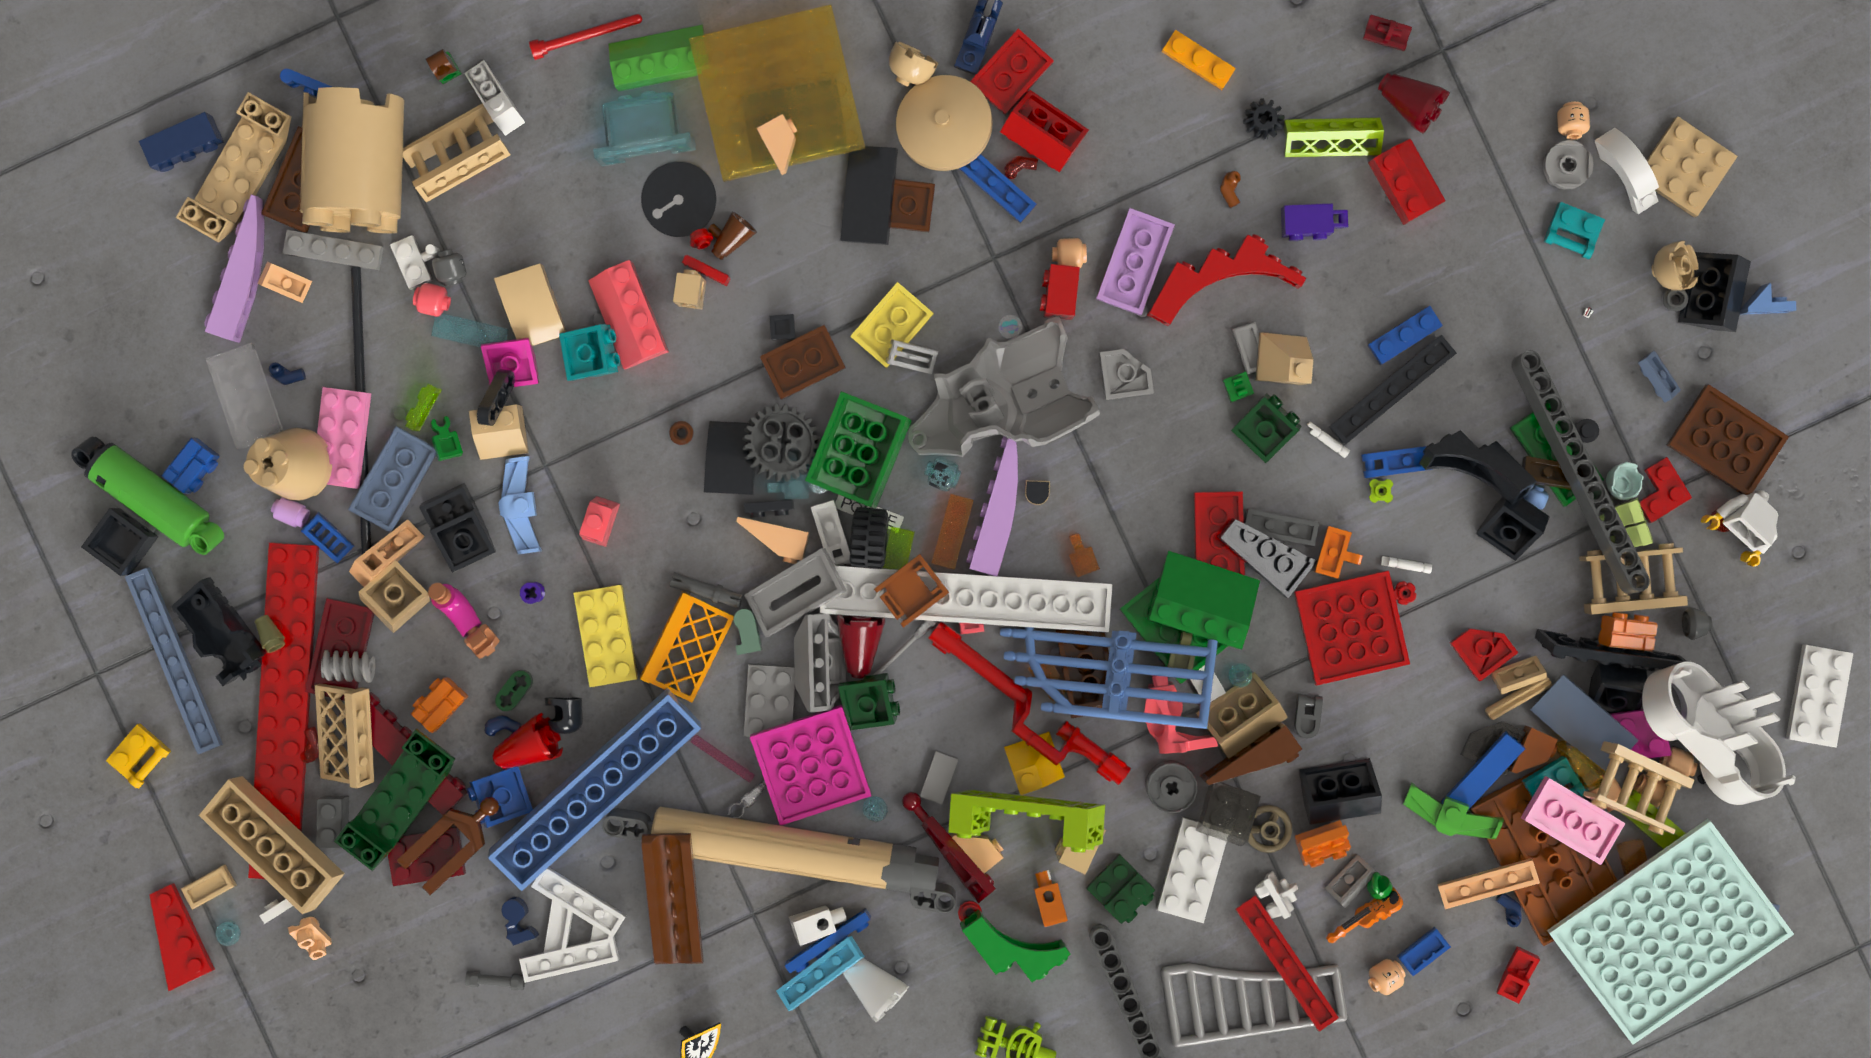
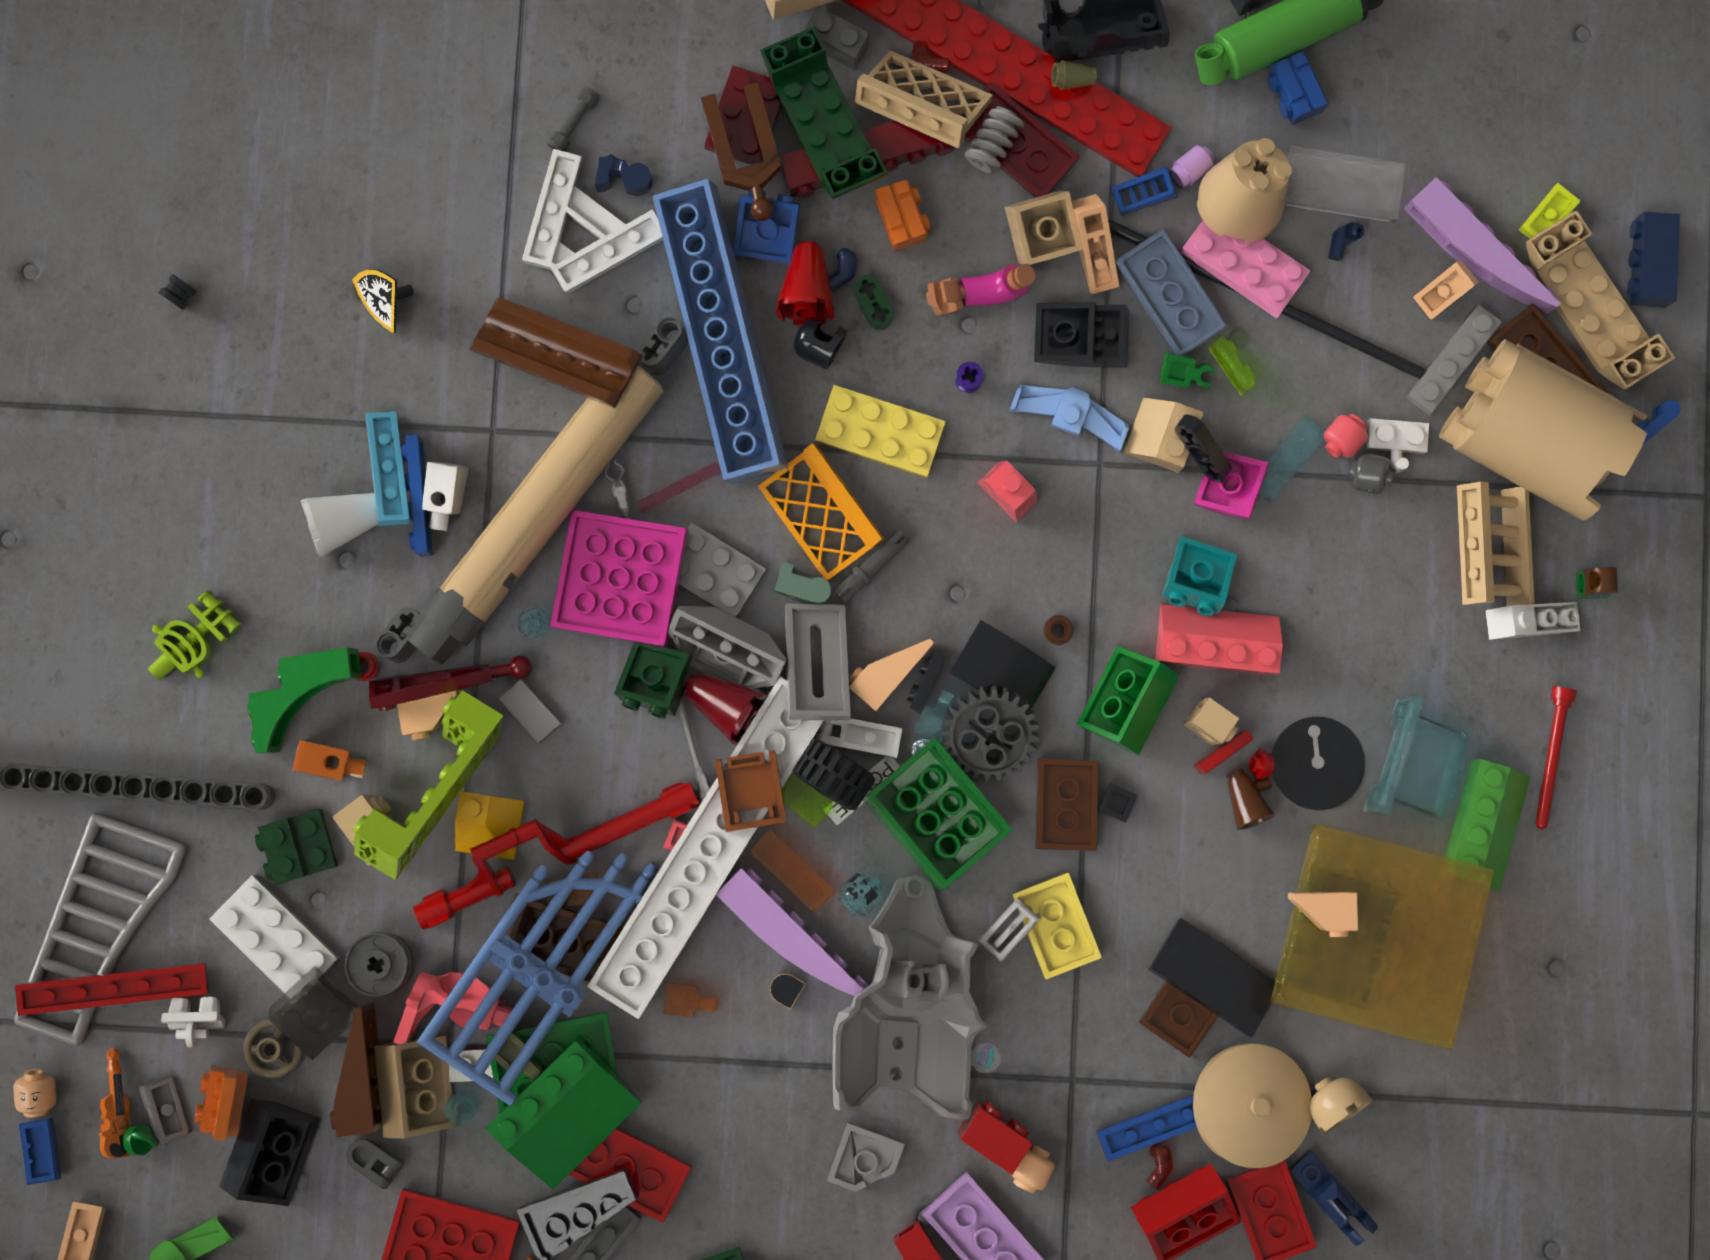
camera: 110 degrees right, 5 degrees down
(181, 234) = (1552, 208): none -> neon yellow plate
(530, 304) = (1285, 540): tan slope -> none
(705, 357) = (1128, 699): none -> green slope

